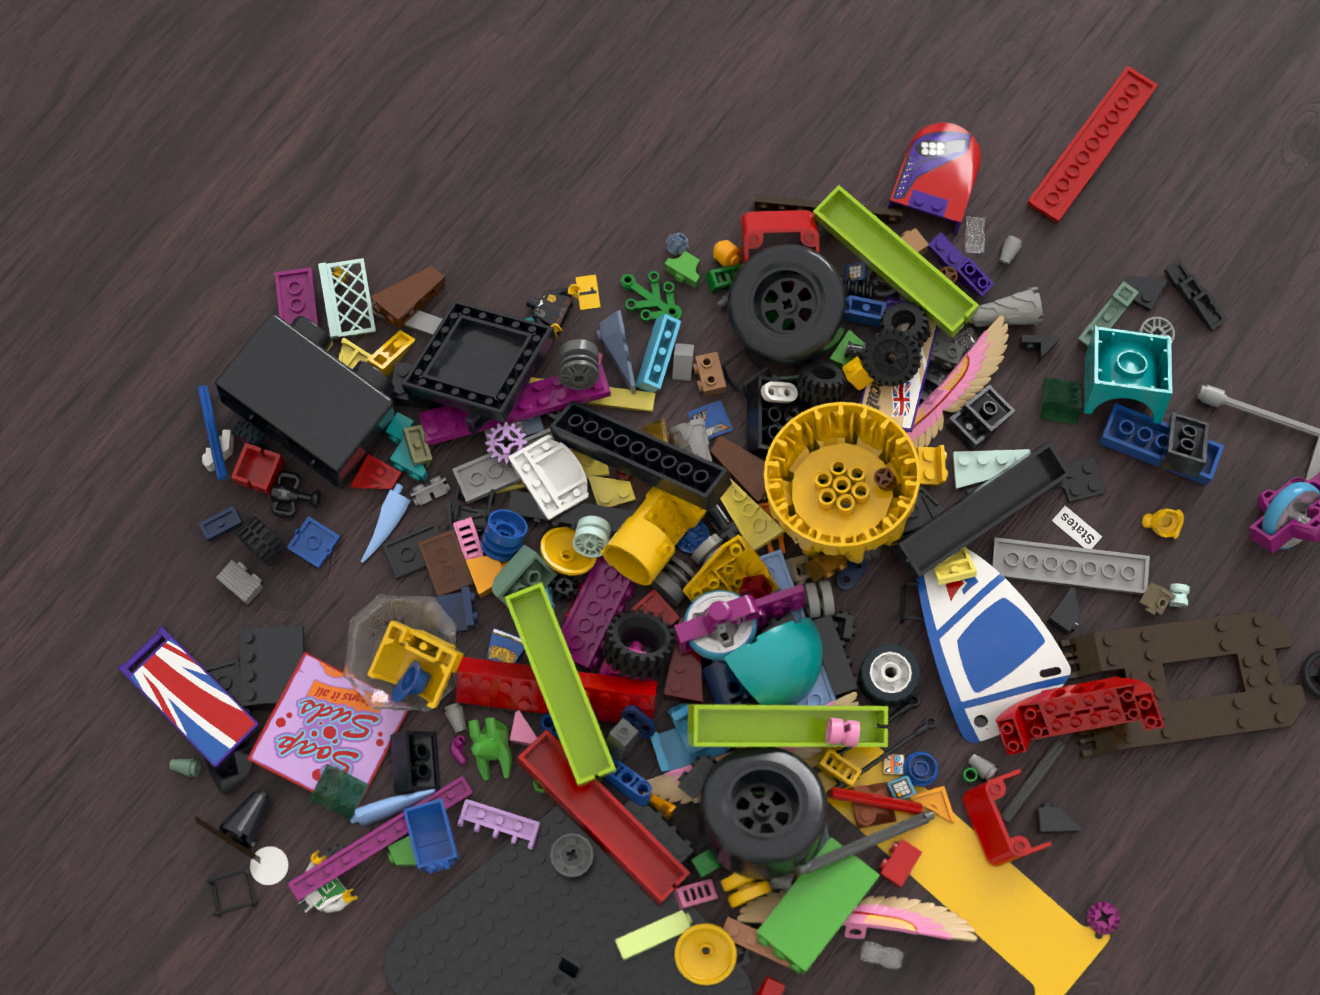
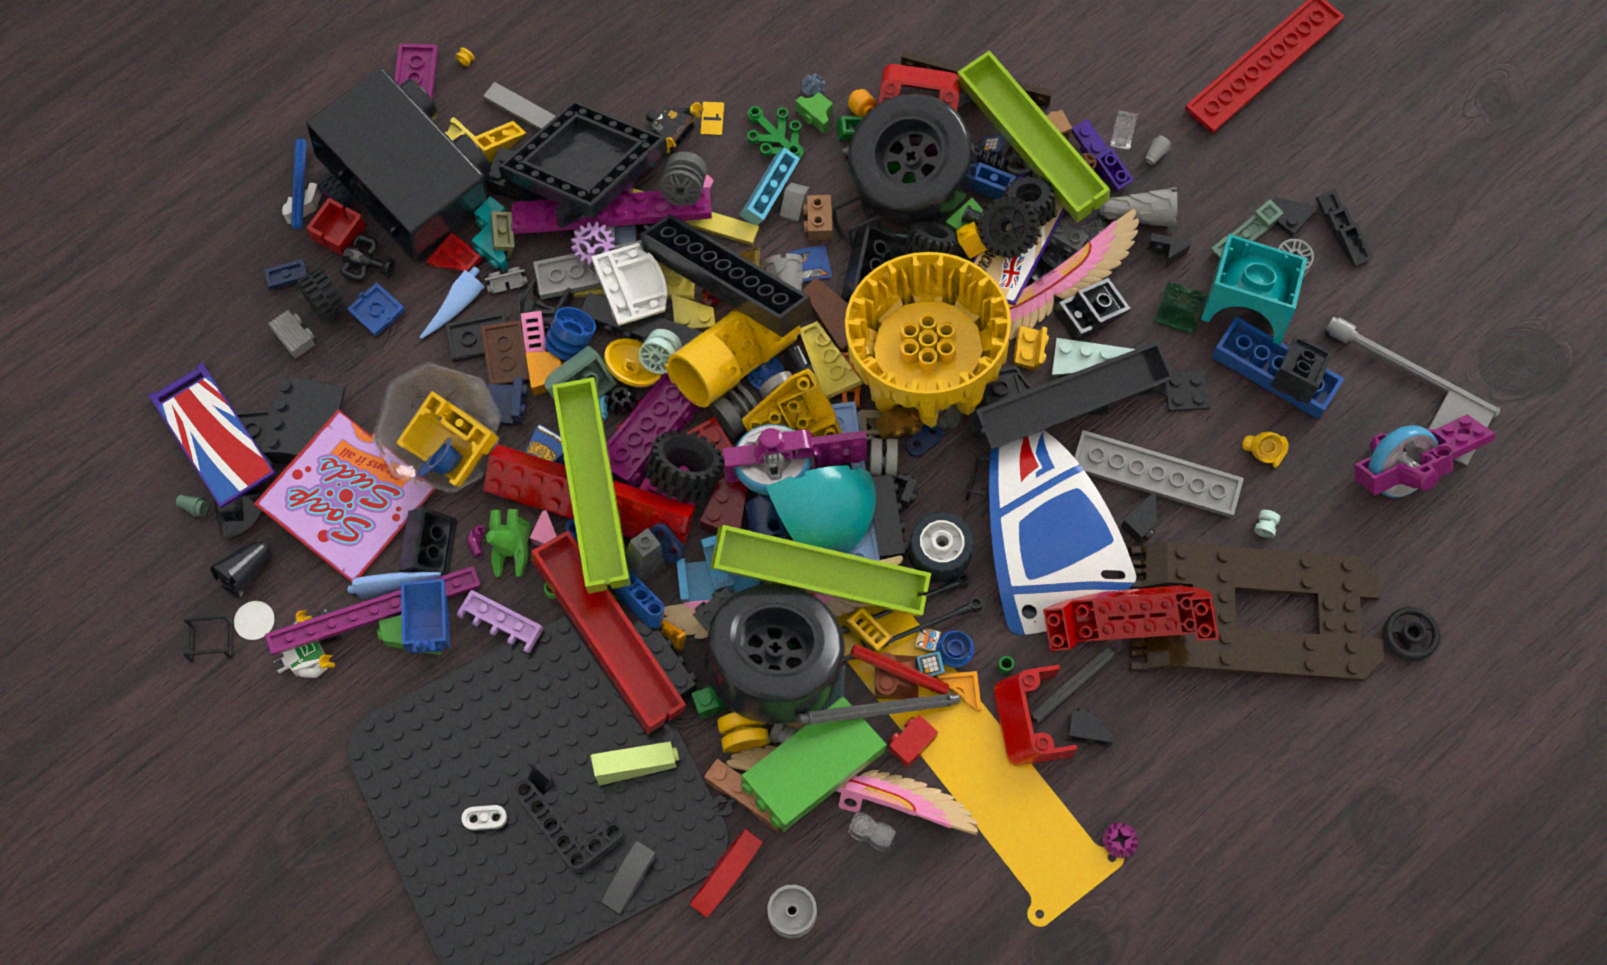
camera: 10 degrees right, 5 degrees down
(230, 841) = (217, 585): dark brown sticker -> none
(330, 298) = (448, 77): light aqua fence -> none
(338, 792) = (341, 556): clear green bracket -> none
(408, 296) = (527, 88): reddish brown slope -> none
(456, 717) = (480, 505): light grey cone -> none
(566, 844) = (564, 652): dark grey wheel -> none
(614, 342) = (728, 172): sand blue wedge -> none
(680, 898) = (676, 739): bright pink slope -> none
(701, 966) = (669, 792): yellow dish -> none
(756, 585) = (818, 426): dark red brick -> none
(777, 392) = (884, 242): white plate -> none
(842, 732) = (875, 587): bright pink wheel -> none
(882, 475) = (976, 336): reddish brown wheel -> none
(938, 172) = (1098, 62): windscreen -> none
(955, 568) = (1032, 449): light yellow wing -> none
(984, 768) = (1022, 659): light grey cone -> none
(1076, 528) = (1172, 438): white sticker -> none
(1156, 599) = (1242, 522): dark tan brick -> none

